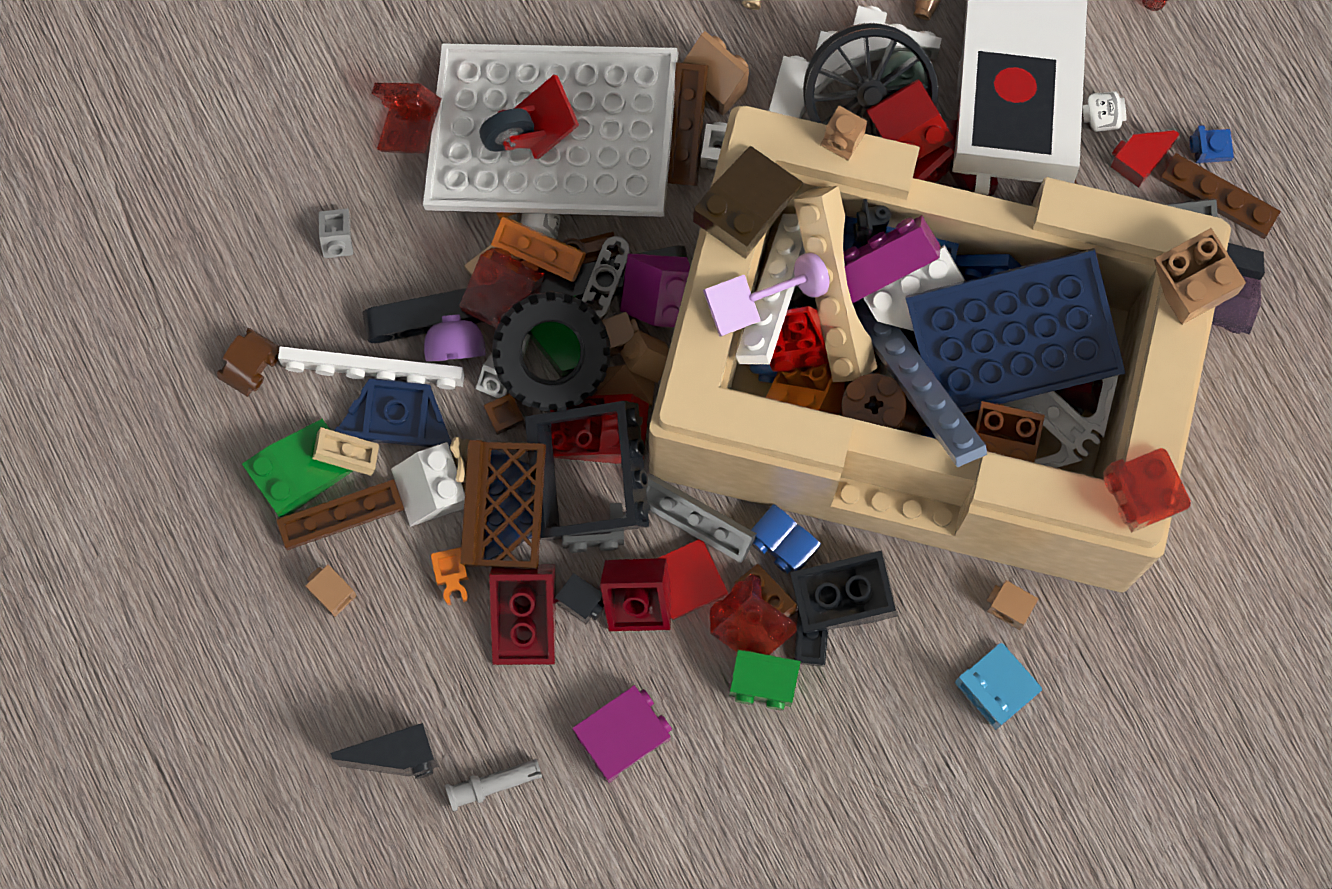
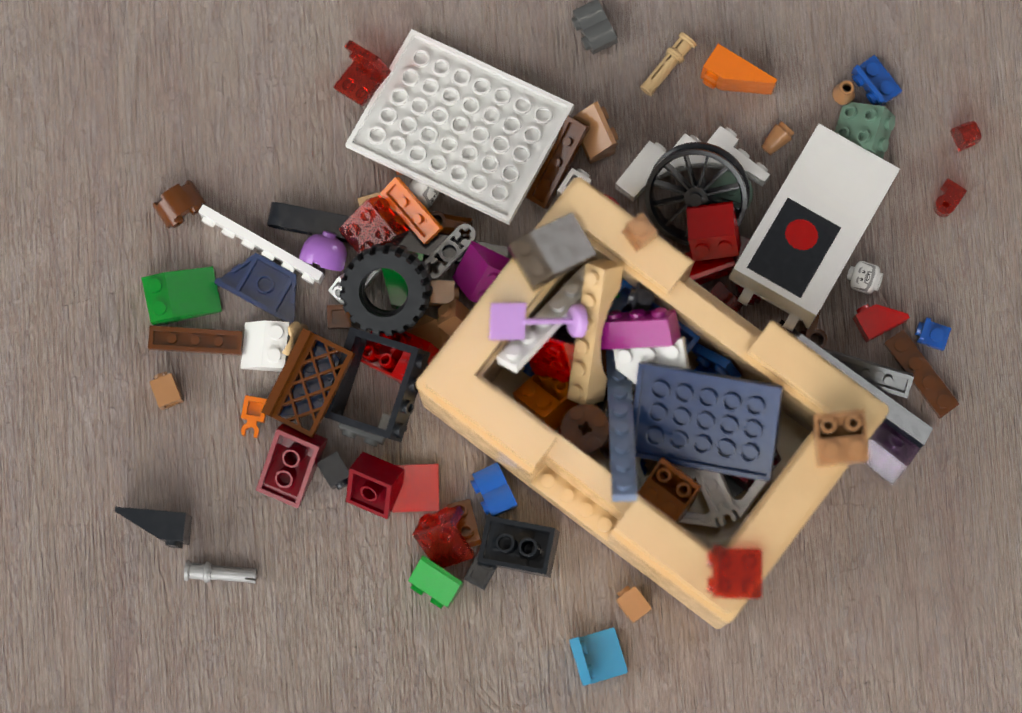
camera: 30 degrees right, 5 degrees up
(335, 233) = (277, 136): light grey bracket -> none
(345, 451) = (217, 297): tan plate -> none
(534, 123) = (448, 119): red plate -> none
(622, 732) = (322, 576): magenta panel -> none
(698, 519) = (440, 449): dark grey plate -> none

